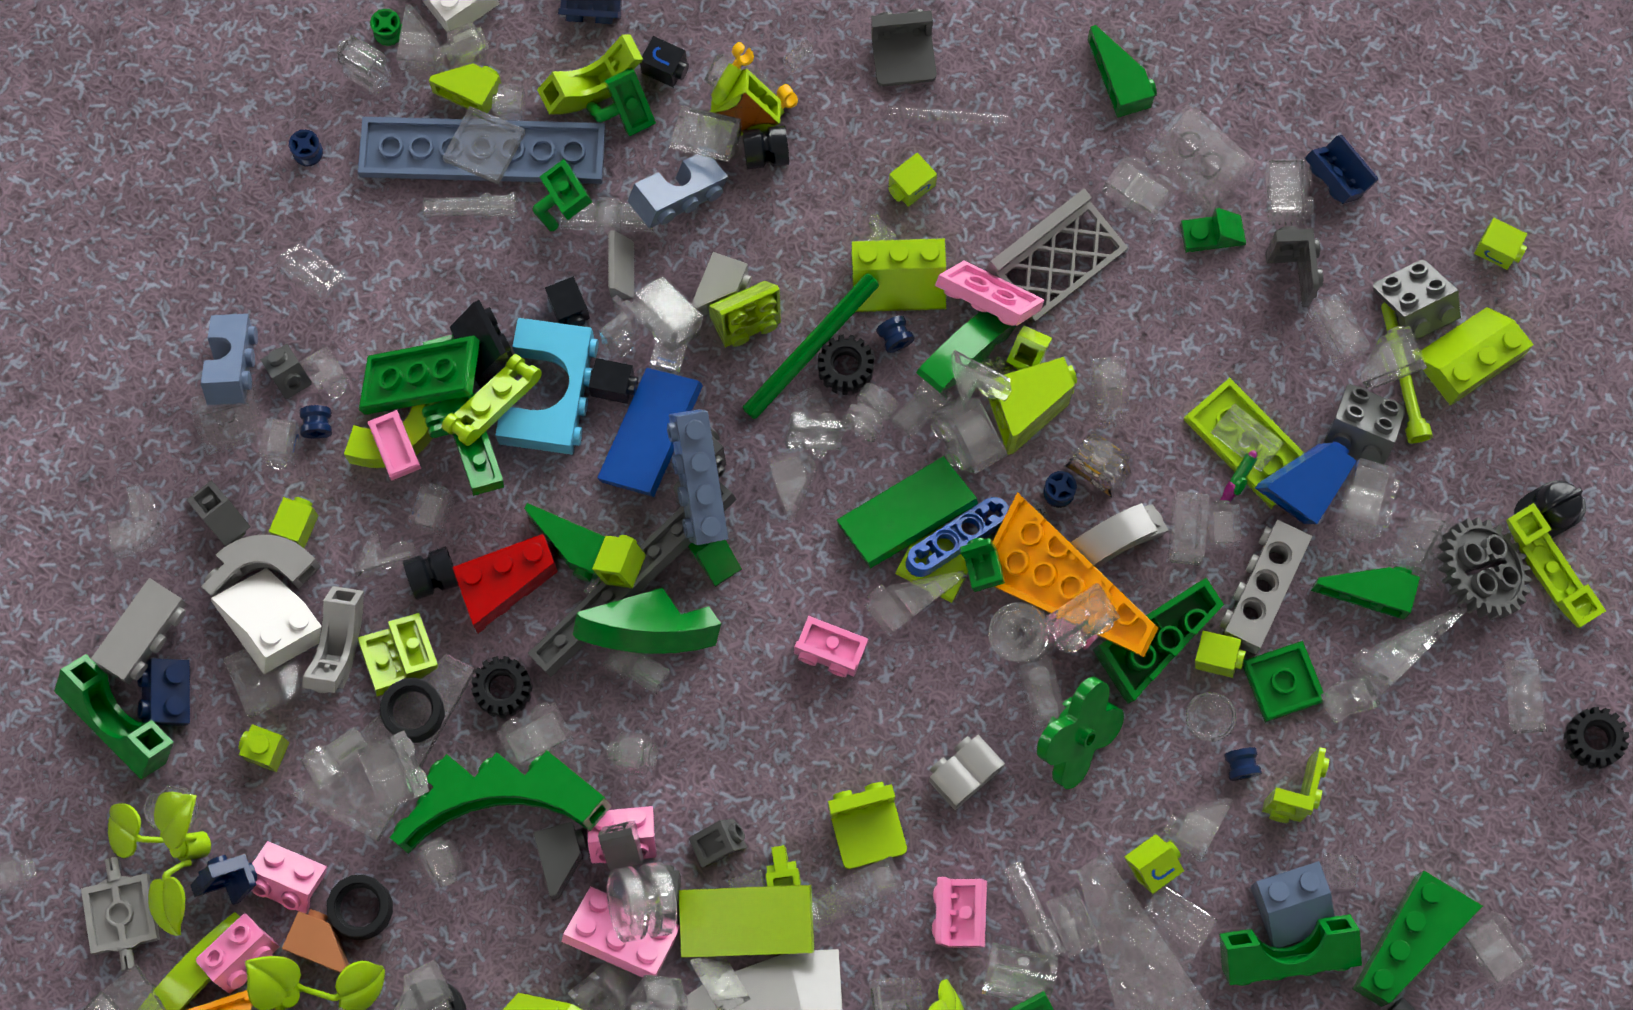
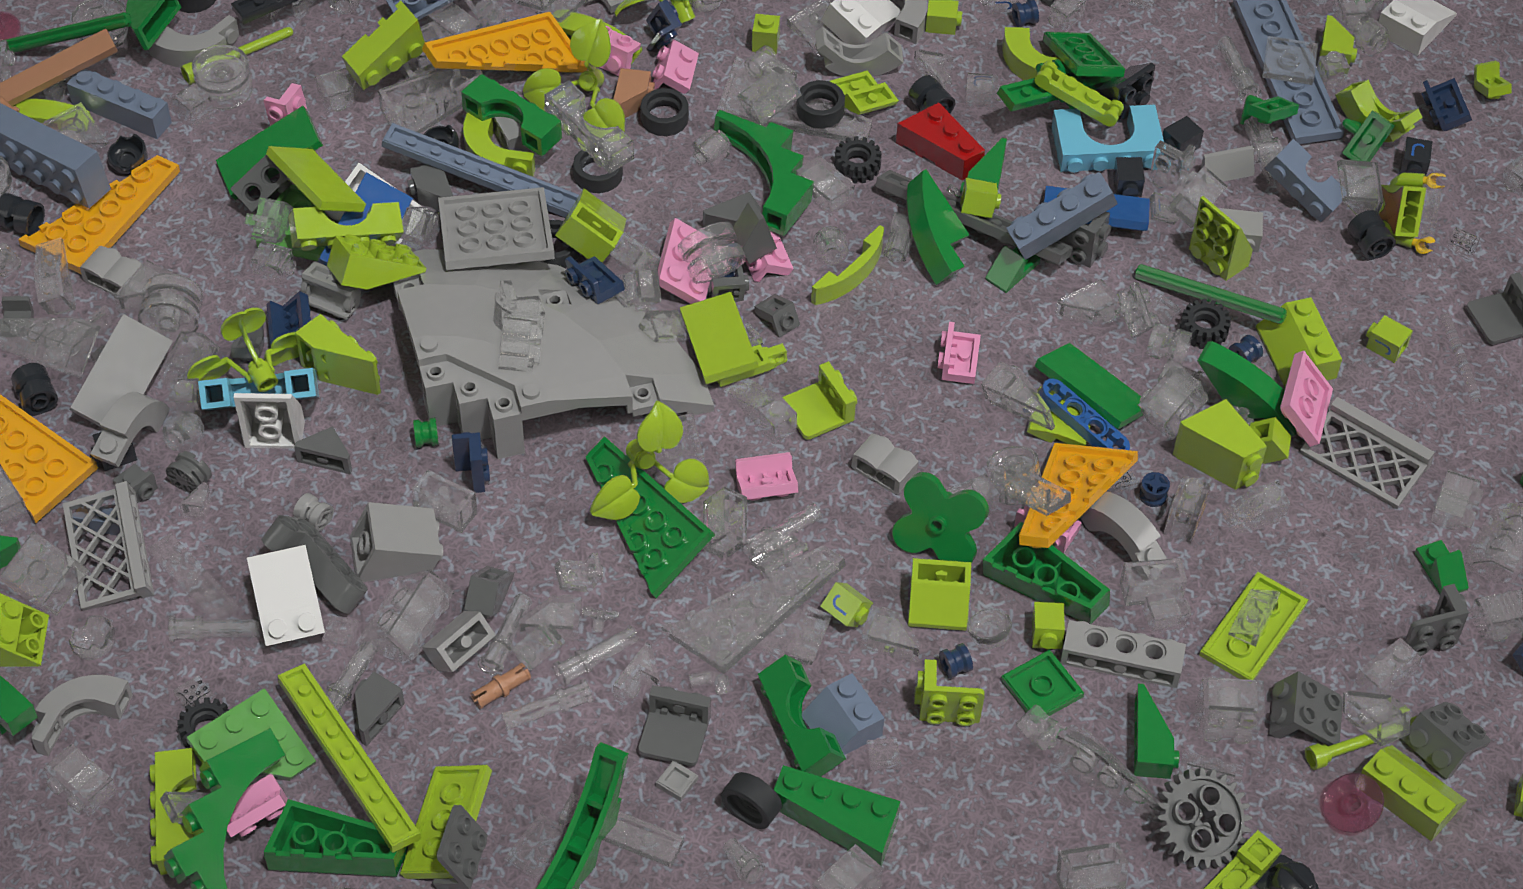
camera: 75 degrees right, 20 degrees down
(394, 445) = (1022, 51): bright pink tile -> none
(648, 706) = (832, 286): none -> lime slope
(880, 229) = (1336, 326): clear plant -> none
(972, 374) = (1217, 373): clear slope -> none
(982, 564) = (1065, 436): green bracket -> none
(1160, 759) = (939, 594): none -> lime slope
(1238, 480) = (1207, 617): green piece -> none
(1309, 482) = (1228, 658): blue slope -> none
(1494, 424) = (1344, 793): none -> clear pink dish

